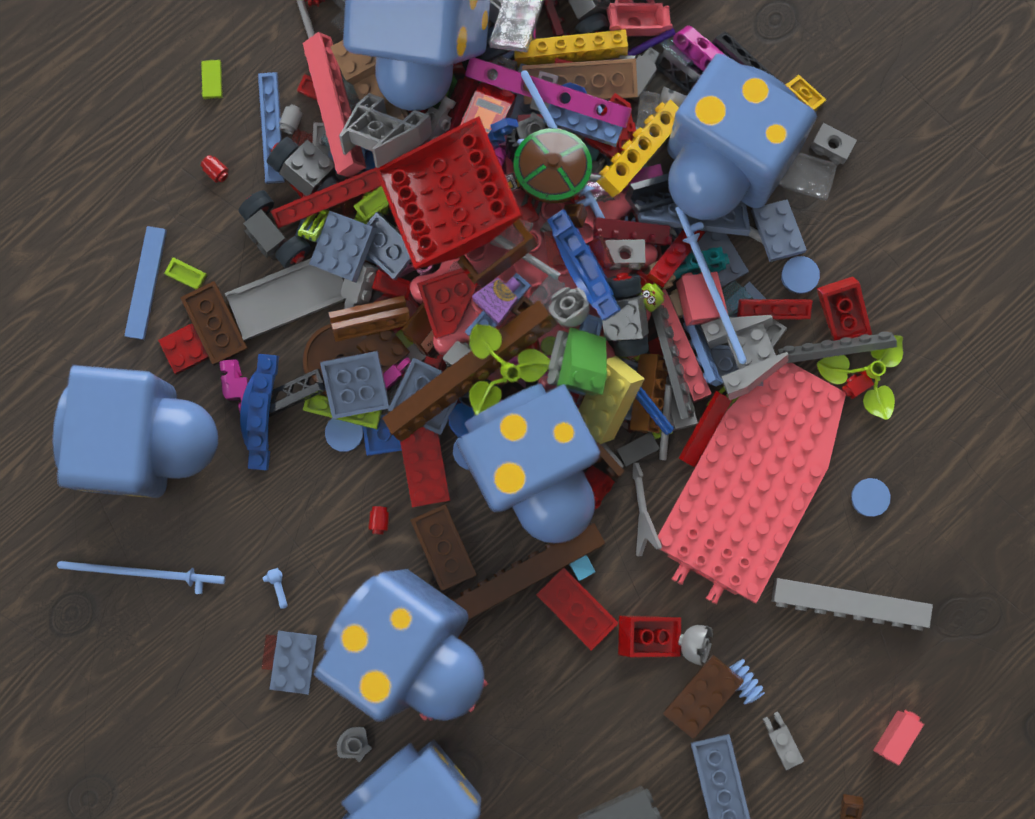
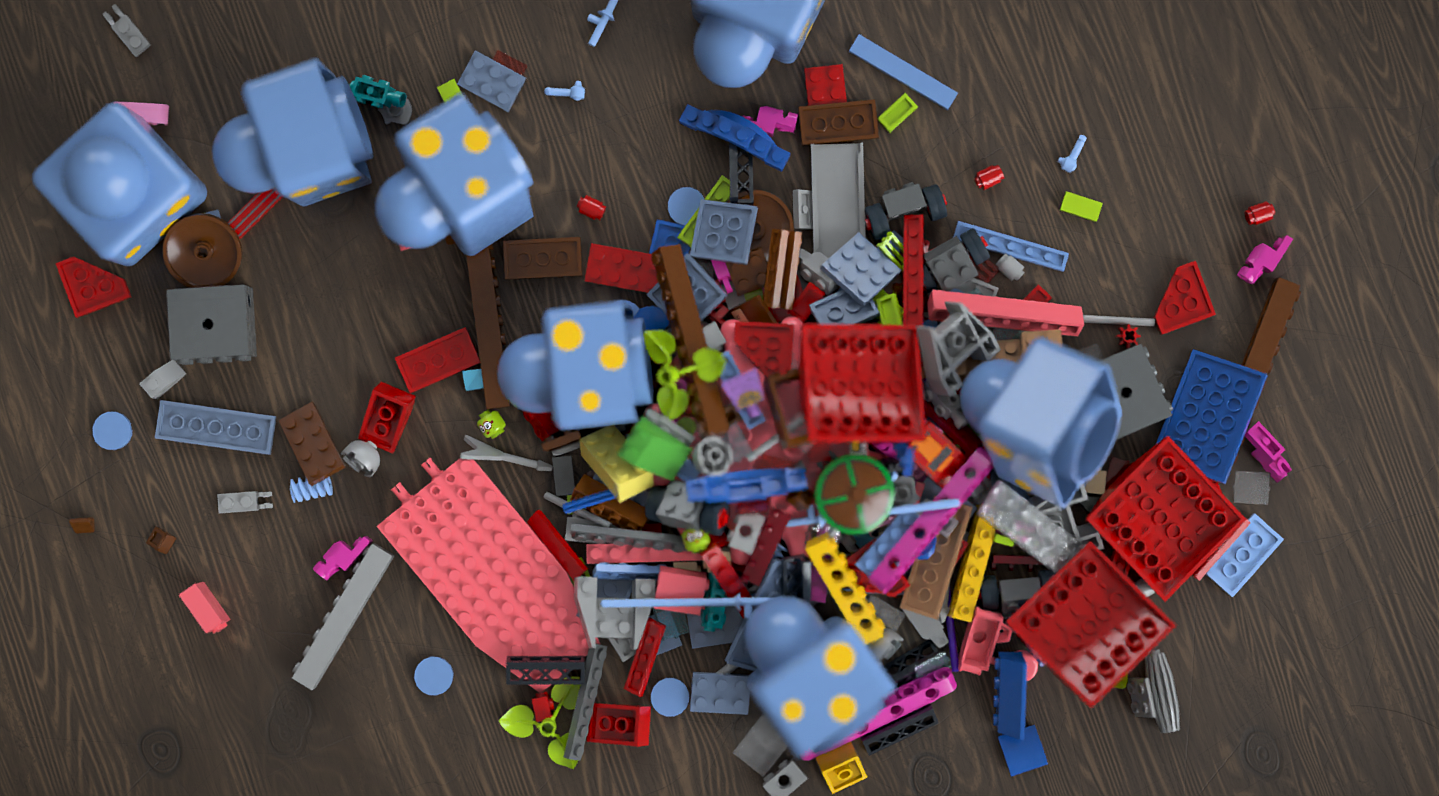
camera: 110 degrees right, 5 degrees up
(176, 103) = (1069, 162): none -> light blue piece
(307, 324) = (802, 209): none -> light grey plate
(318, 698) = (449, 90): none -> lime tile
(345, 769) = (379, 93): none -> teal brick
(540, 29) = (1003, 540): none -> lime tile
(617, 534) = (491, 424): none -> lime head
(796, 627) = (341, 556): none -> dark pink plate
(817, 393) = (544, 662): none -> black fence

